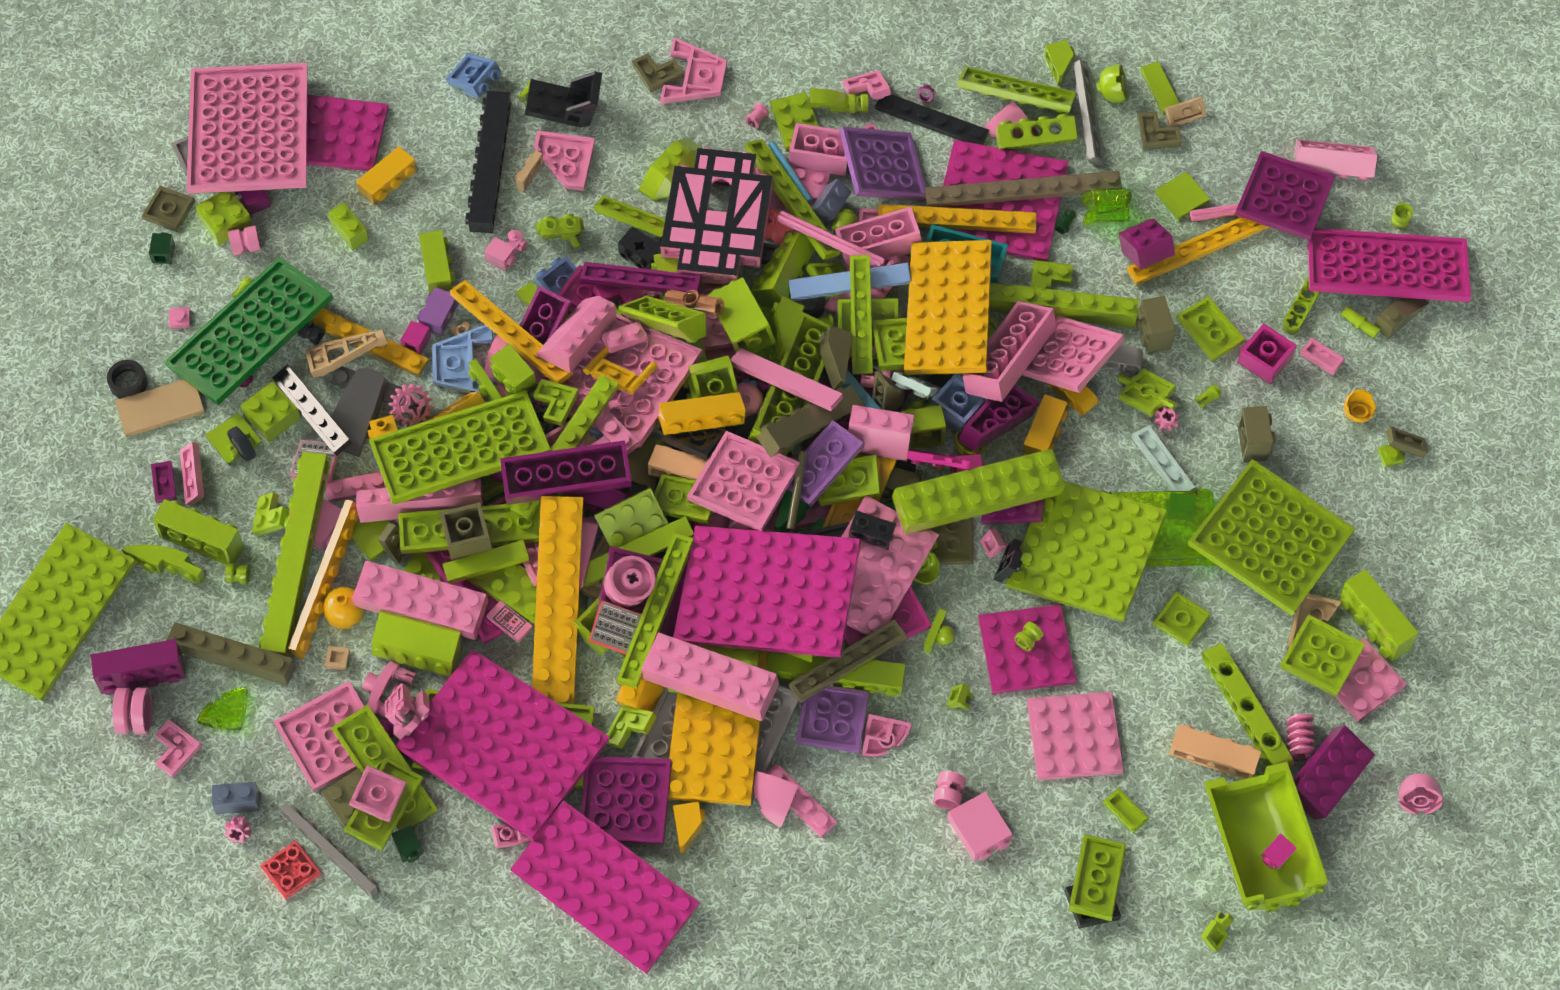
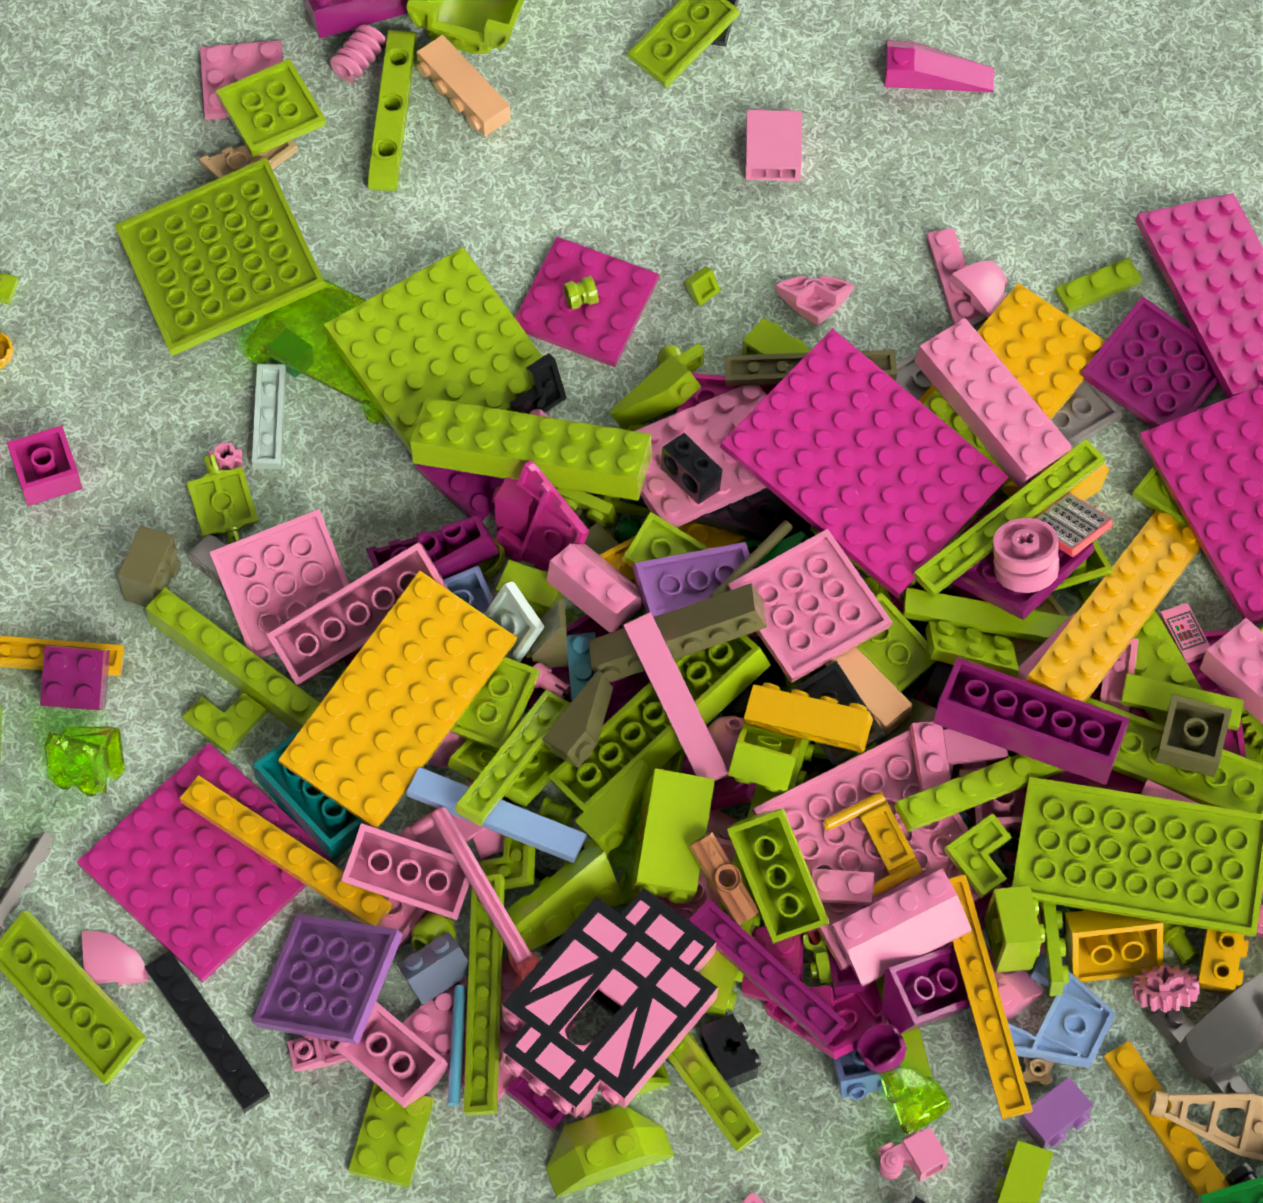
camera: 150 degrees left, 0 degrees up
(416, 337) = (1107, 1091): dark pink brick -> none
(520, 272) = (915, 1098): none -> clear neon green brick
(552, 276) = (881, 1048): none -> magenta hair
(564, 228) = (820, 1143): lime brick -> none
(629, 720) = (1116, 450): lime plate -> none
(688, 823) = (1099, 309): yellow slope -> none
(700, 850) = (1098, 285): none -> lime plate
(757, 115) = (441, 1169): bright pink bush -> none
(829, 98) = (327, 1137): lime slope -> none
(833, 719) = (865, 326): medium lavender plate -> none
(853, 103) = (290, 1106): lime wheel -> none
(871, 82) = (251, 1129): bright pink plate -> none
(916, 954) = (925, 67): none -> dark pink wedge
(926, 98) = (188, 1069): magenta plate -> none
(931, 600) = (658, 393): none -> lime slope
(949, 790) = (786, 190): bright pink wheel -> none
(1021, 189) = (171, 845): dark tan plate -> none
(1046, 425) = (376, 526): yellow brick -> none
(1064, 122) = (91, 916): lime brick -> none
(1065, 222) = (146, 780): dark green pin -> none
(1074, 736) = (600, 186): bright pink plate -> none
(1125, 810) = (601, 87): lime tile -> none
(1181, 618) = (386, 241): lime tile -> none
(1210, 328) = (81, 542): lime plate -> none
(1212, 392) = (151, 465): lime pin -> none
(1255, 433) = (141, 375): olive brick -> none
(1378, 615) = (176, 114): lime brick -> none

